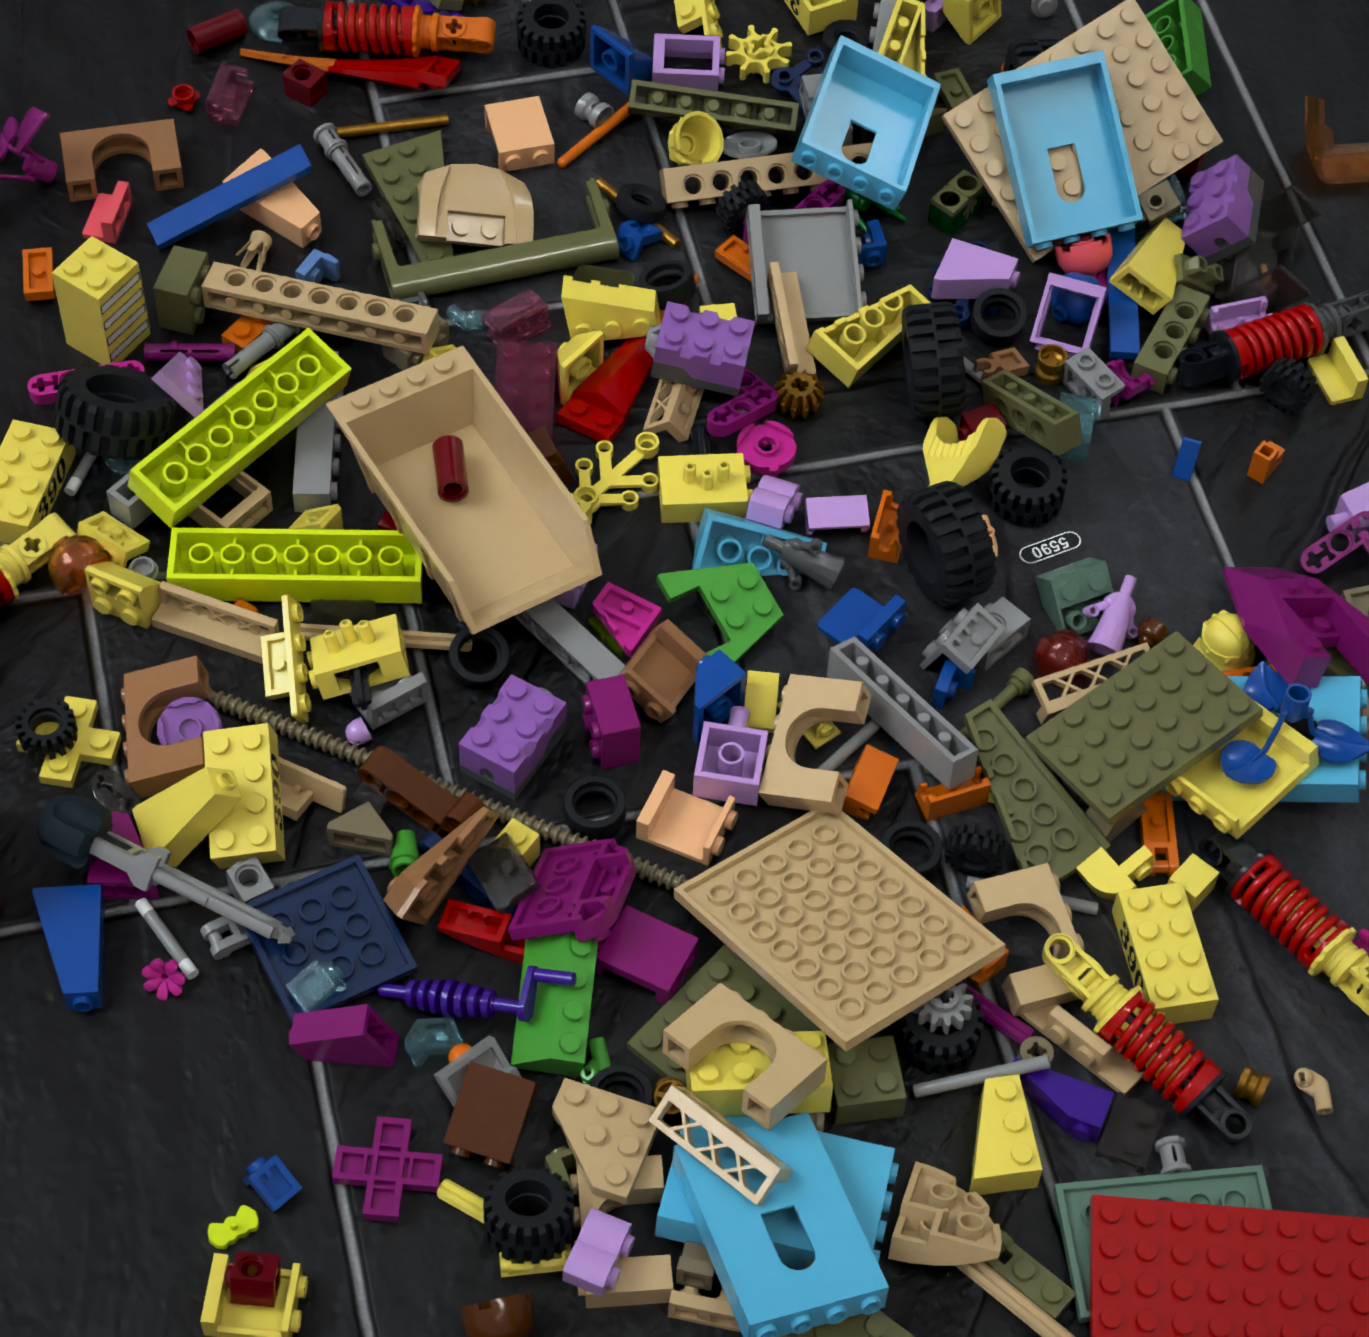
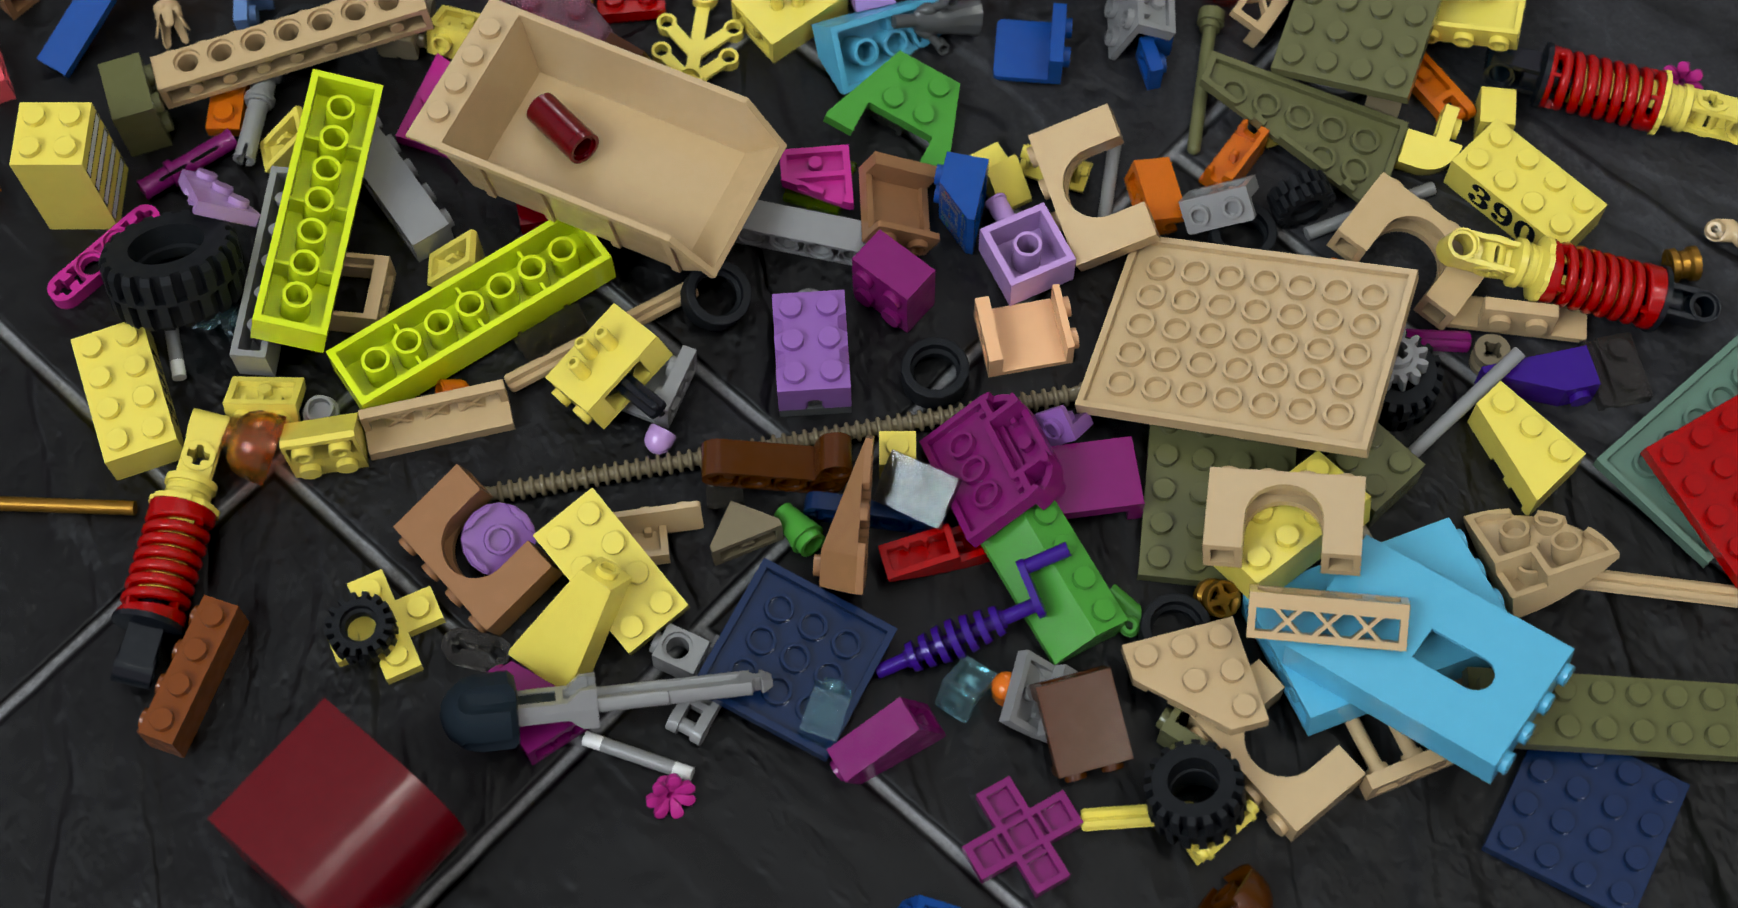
camera: 30 degrees left, 10 degrees up
(75, 936) = (553, 815): blue slope -> none
(284, 664) = (538, 418): light yellow bracket -> none
(597, 1253) = (1285, 787): lavender brick -> none
(647, 898) = (1062, 425): none -> medium lavender bracket
(695, 1267) = (1370, 738): dark tan panel -> none
(903, 814) = (1219, 205): none -> light grey bracket
(906, 714) = (1147, 110): light grey brick -> none
(1032, 1278) = (1648, 556): olive plate -> none
(1172, 1154) = (1668, 370): light grey bush -> none

